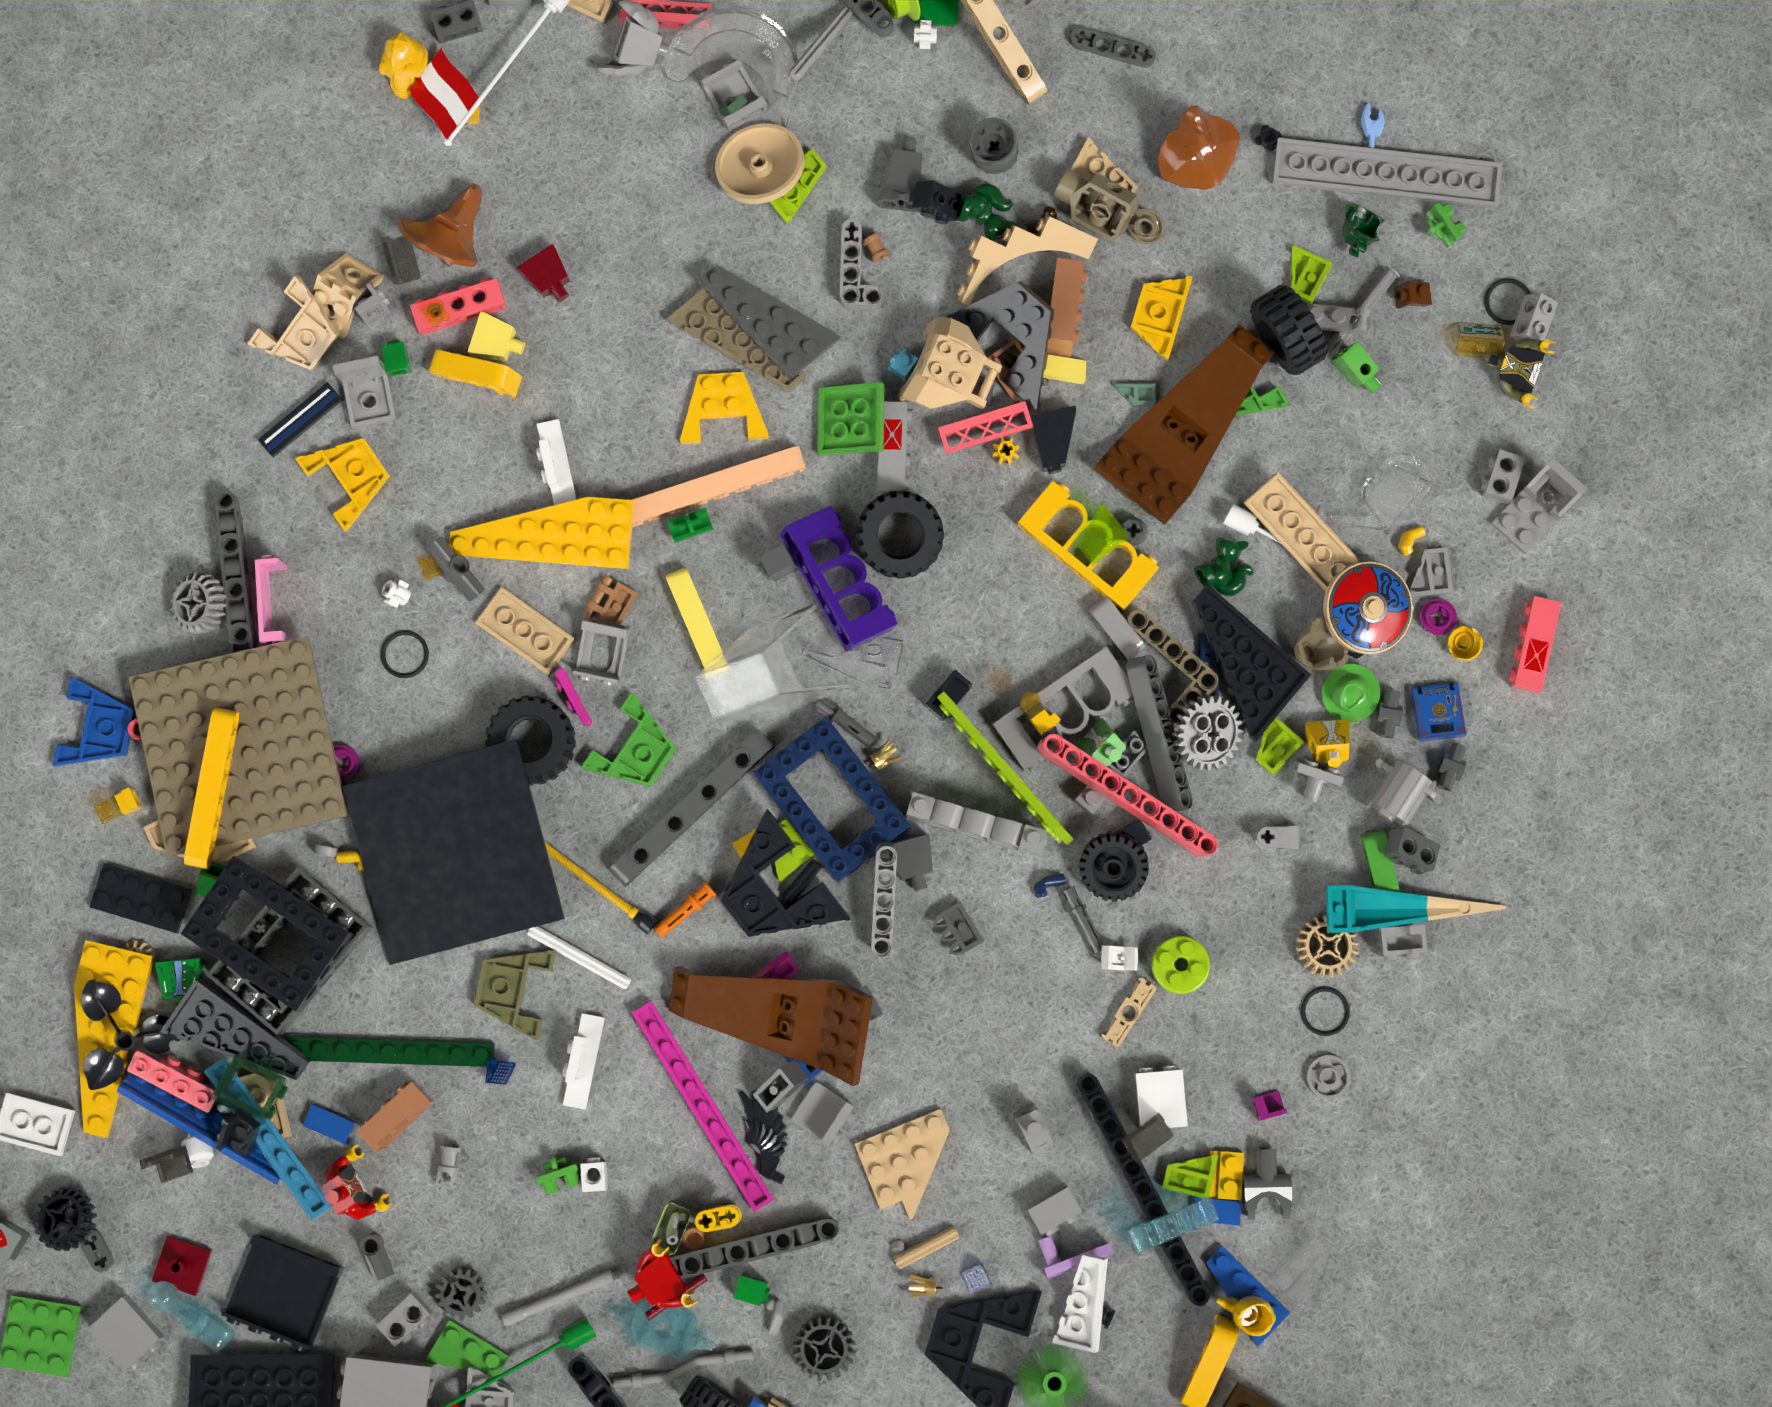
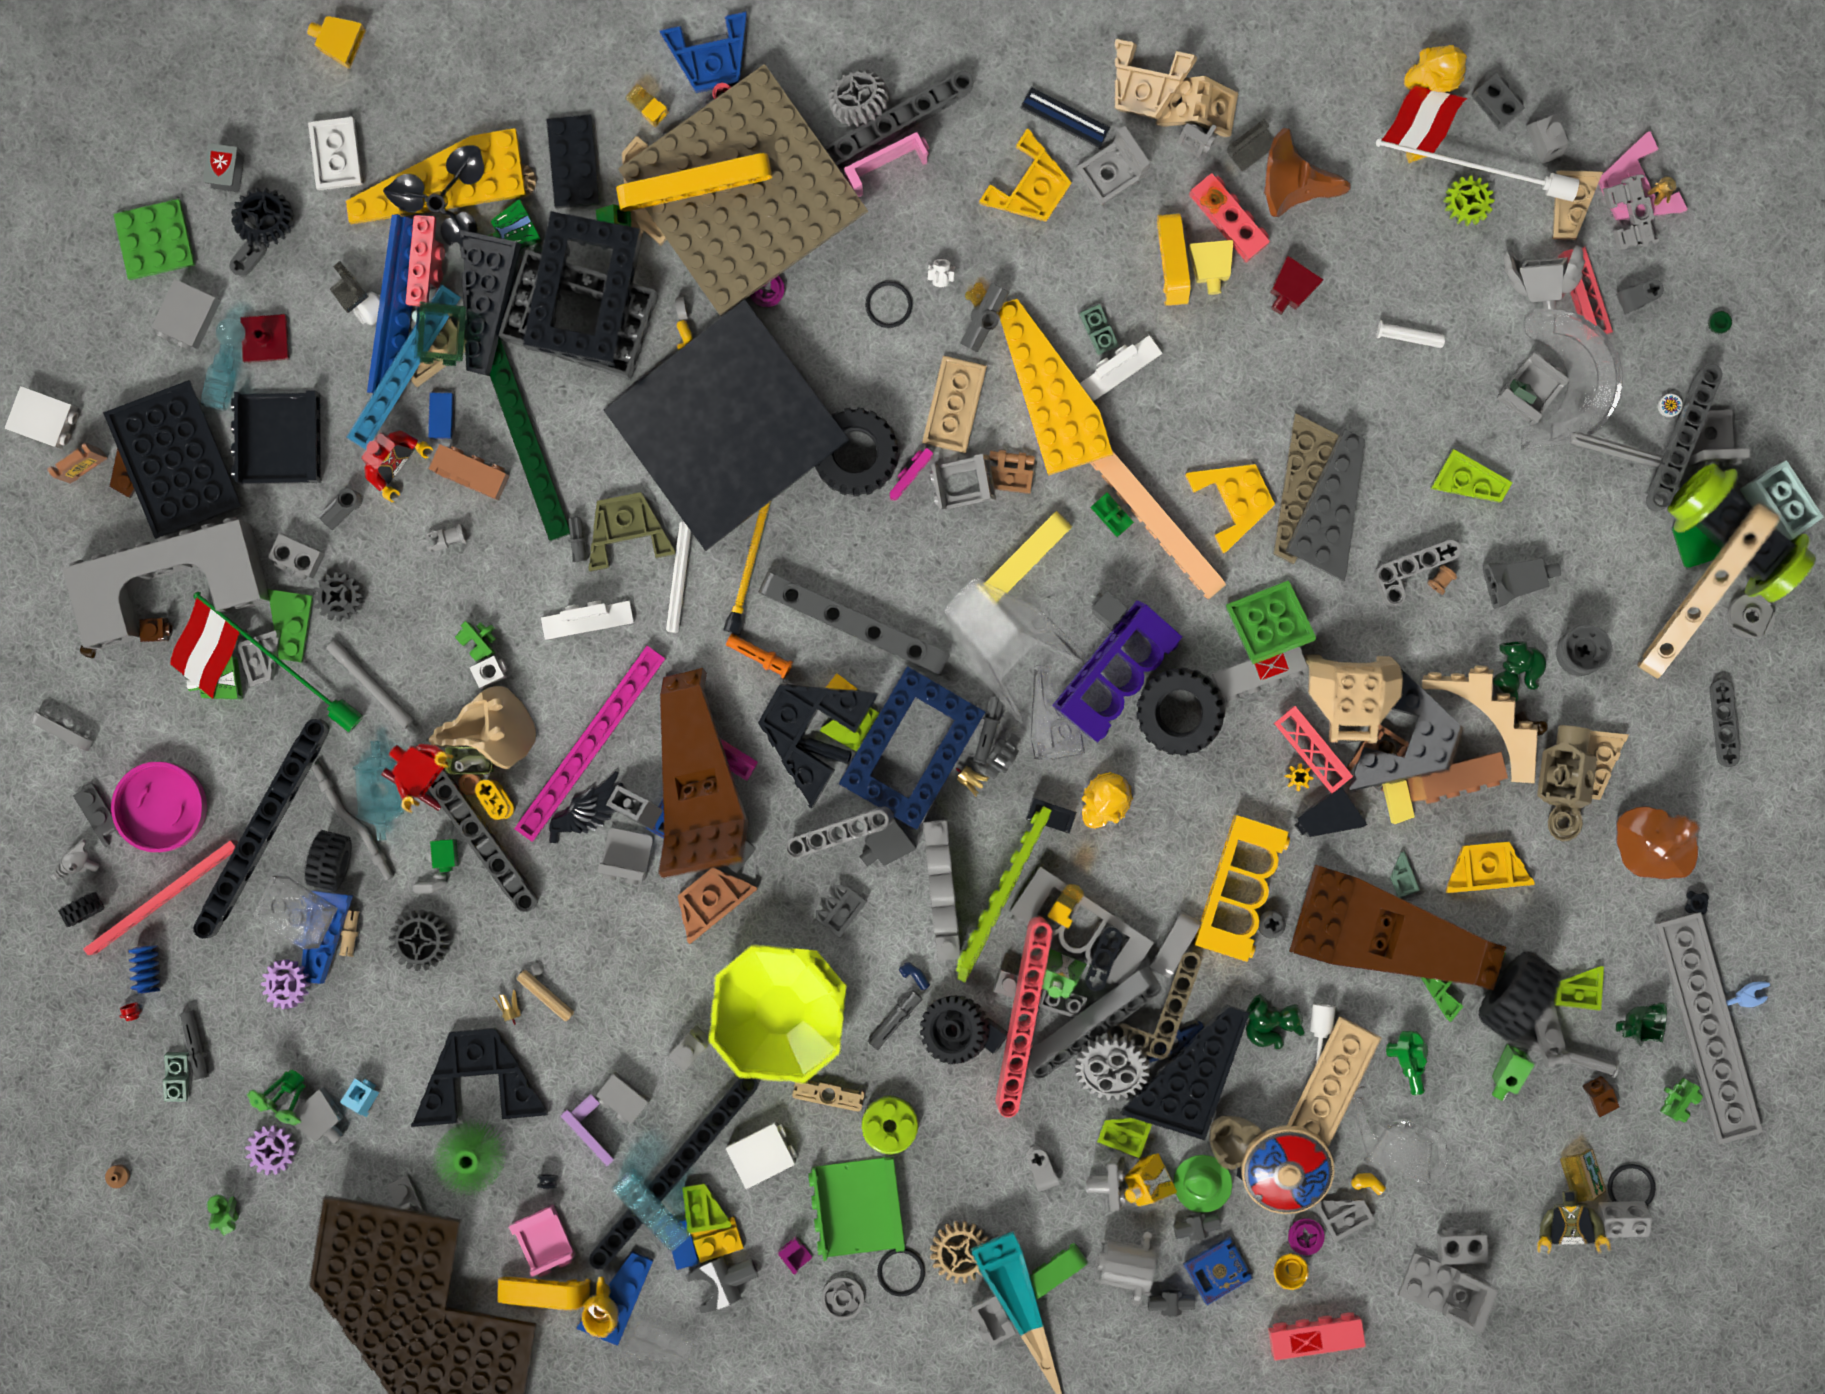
camera: 65 degrees right, 5 degrees up
(239, 1132) = (398, 339): black bracket -> none
(396, 358) = (1157, 180): green brick -> none
(499, 1071) = (547, 548): clear blue slope -> none
(503, 1039) = (577, 540): none -> dark grey axle
(511, 469) = (1098, 329): none -> sand green slope
(531, 90) = (1477, 203): none -> lime gear
(637, 186) = (1410, 335): none -> white axle
(642, 755) = (886, 559): bright green wing -> none
(646, 1190) = (492, 724): none -> tan animal
(759, 163) = (1477, 439): tan dish -> none
(874, 717) = (1002, 755): none -> dark grey gear
(899, 1050) = (710, 900): none -> nougat wing
(903, 364) = (1341, 649): medium azure brick -> none
(903, 1160) = (614, 943): tan wing -> none
(925, 34) = (1665, 543): white gear -> none
(936, 201) = (1508, 618): black brick -> none
(954, 637) = (1106, 800): none -> yellow head
(976, 1278) = (535, 1051): clear blue slope -> none
(1031, 1025) = (777, 1013): none -> neon yellow windscreen
(1083, 1314) = (539, 1161): white wing -> none
(1102, 535) = (1255, 898): clear neon green wing -> none
(1119, 706) = (1114, 944): none -> black beam
(1119, 958) = (873, 1067): white bracket -> none
(1147, 1137) = (720, 1157): clear smoke panel -> none
(1161, 1344) = (543, 1241): none -> bright pink panel
(1247, 1027) = (857, 1207): none -> bright green panel
(1309, 451) = (1412, 1058): none -> green pin
(1411, 850) = (1078, 1296): dark grey brick -> none

